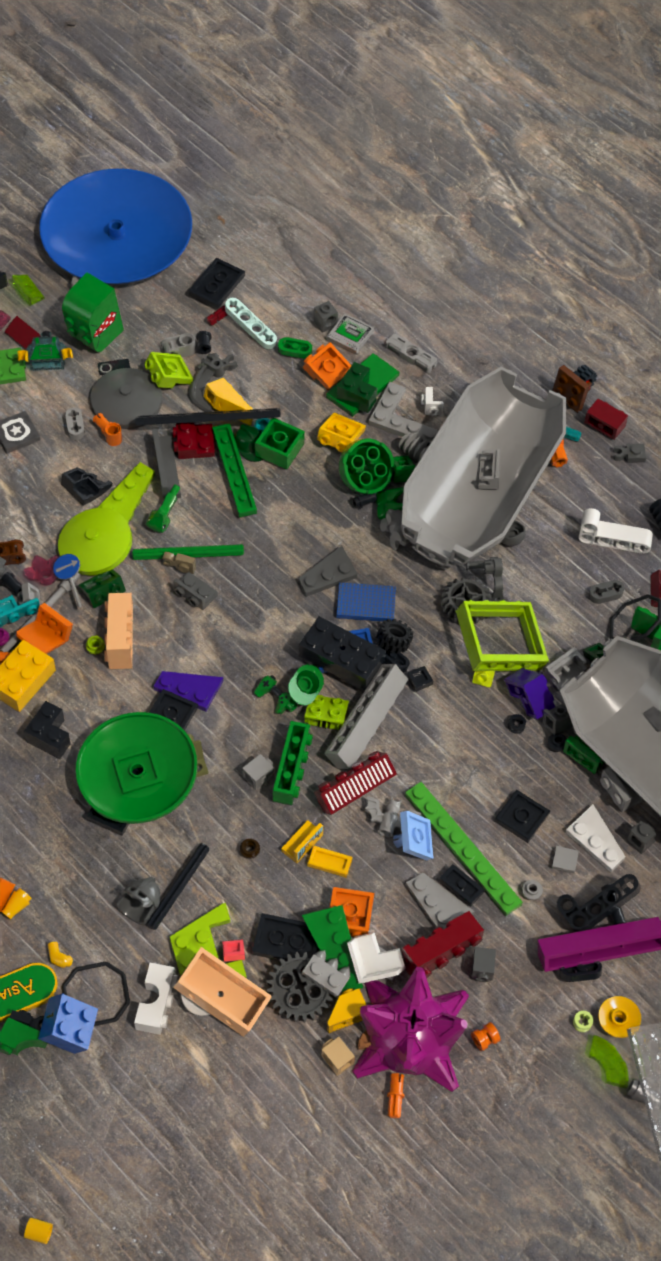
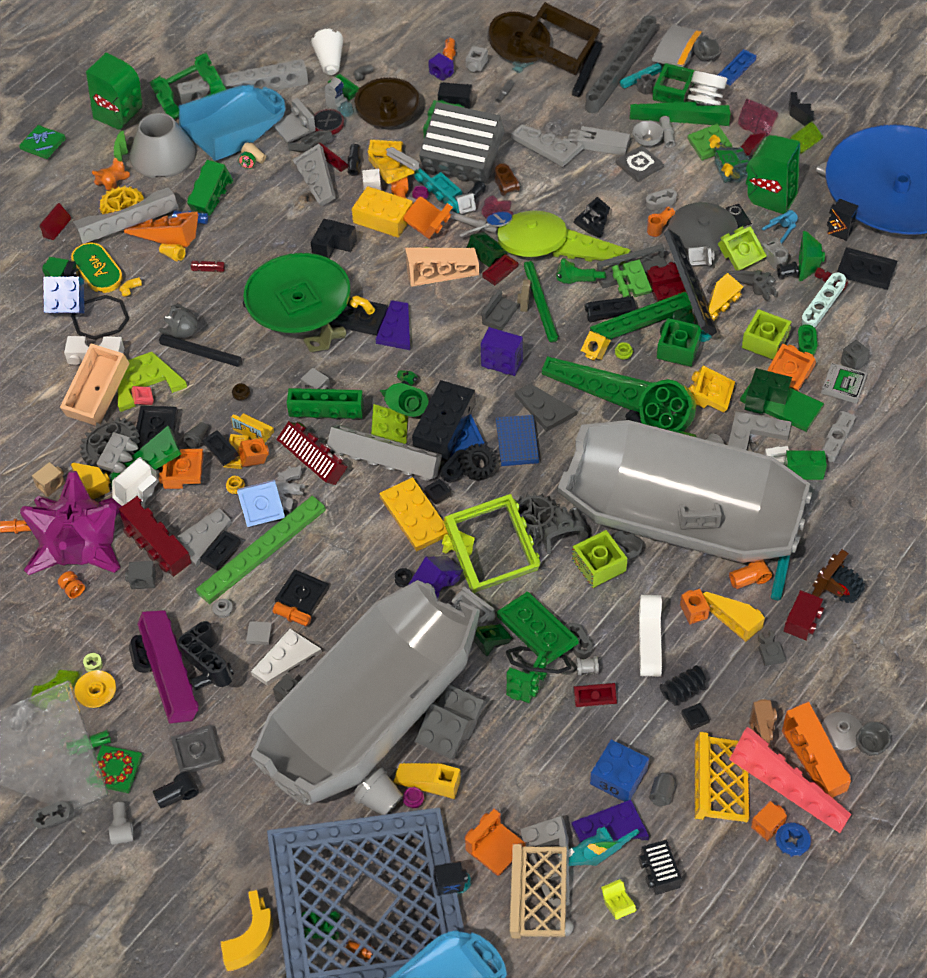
camera: 85 degrees right, 5 degrees down
(49, 867) = (208, 266): none -> dark red axle
(134, 581) = (500, 270): none -> dark red tile
(137, 328) = (786, 220): none -> dark azure plant
(157, 282) = (842, 219): none -> black brick
(162, 706) = (367, 306): none -> yellow arm
(167, 402) = (700, 255): none -> light grey bracket
(183, 467) = (636, 278): none -> bright green plate
(195, 320) = (809, 256): none -> green slope
(215, 492) = (609, 308): none -> black plate
(260, 512) = (602, 342): none -> yellow brick
(260, 591) = (501, 351): none -> dark purple brick
(273, 489) = (623, 350): none -> lime plate
(286, 374) = (766, 334): none -> lime brick
(304, 898) = (195, 436): none -> dark grey cone
(315, 514) = (606, 385): none -> green wing
(332, 870) = (220, 448): none -> black hinge
(343, 840) = (247, 452): none -> orange brick
(377, 859) = (234, 483): none -> yellow plate
(441, 704) = (414, 514): none -> yellow plate
(444, 381) = (806, 464): none -> green brick
(526, 555) = (599, 558): none -> lime brick
(549, 825) = (292, 614): none -> orange axle
(584, 495) = (694, 613): none -> orange brick
(594, 618) = (537, 627): none -> green plate
(601, 465) = (736, 615): none -> yellow slope
(636, 588) = (587, 665): none -> light grey bush

